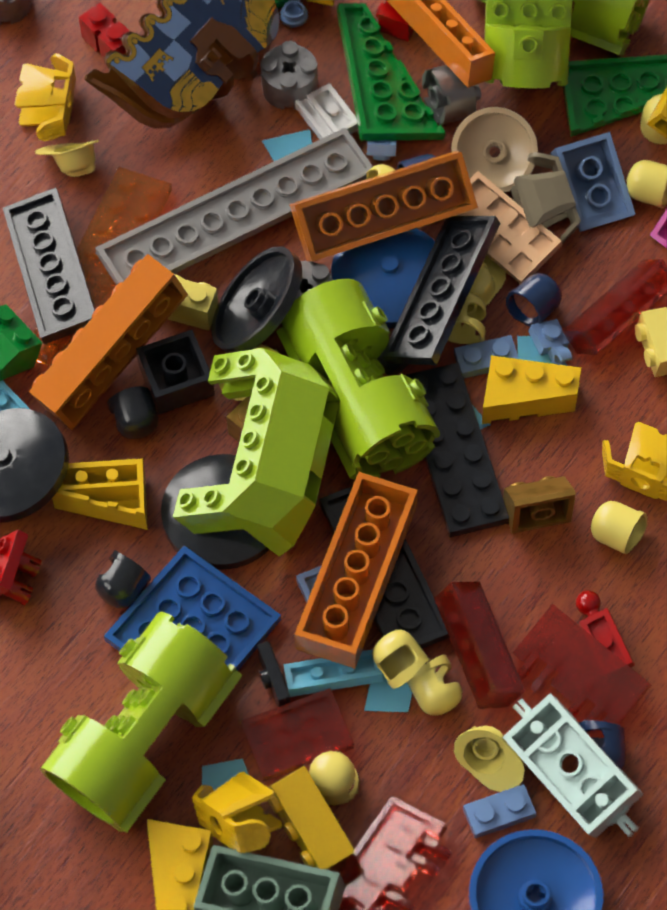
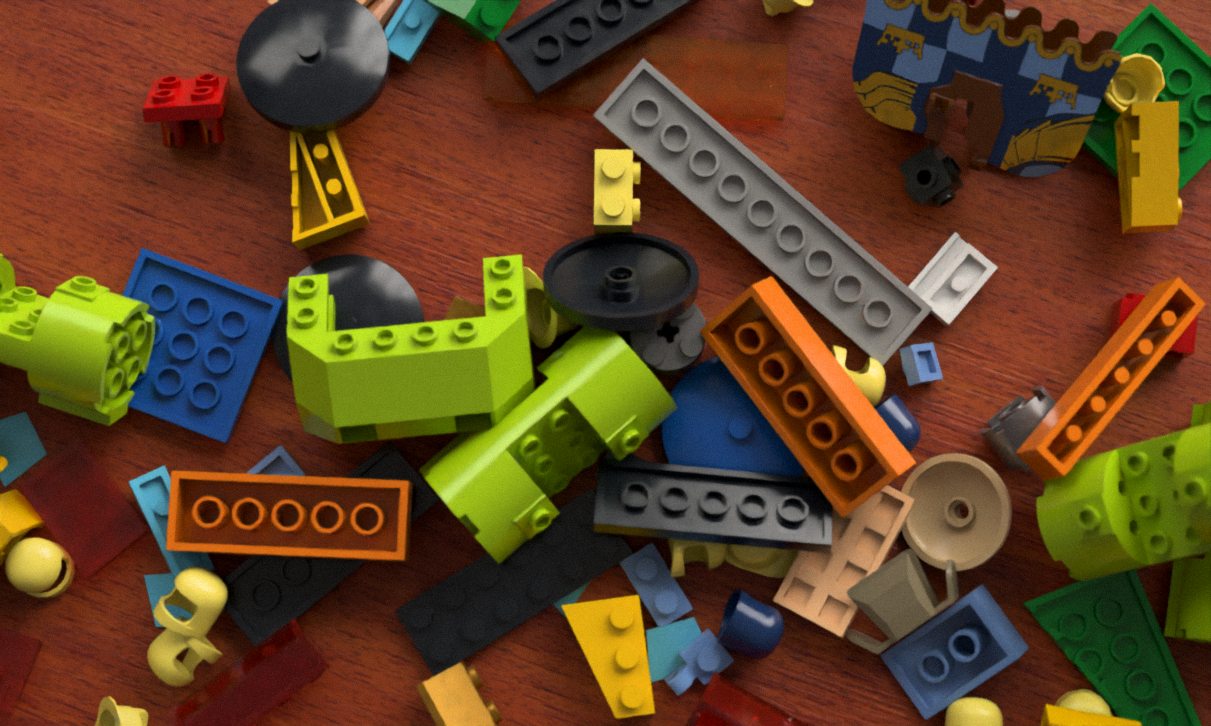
camera: 75 degrees right, 20 degrees up
(108, 341) = (505, 120): orange brick -> none
(122, 582) = (208, 246): black helmet -> none
(134, 412) = (437, 183): black helmet -> none
(175, 371) = (507, 211): black brick -> none
(241, 98) = (931, 177): none -> pearl dark grey brick
(271, 674) = (146, 457): black plate -> none
(287, 144) = (892, 245): medium azure sticker -> none
(288, 74) = (1011, 206): flat silver brick -> none
(293, 14) = (1097, 187): medium blue plate -> none
(381, 87) = (1011, 339): green wing -> none

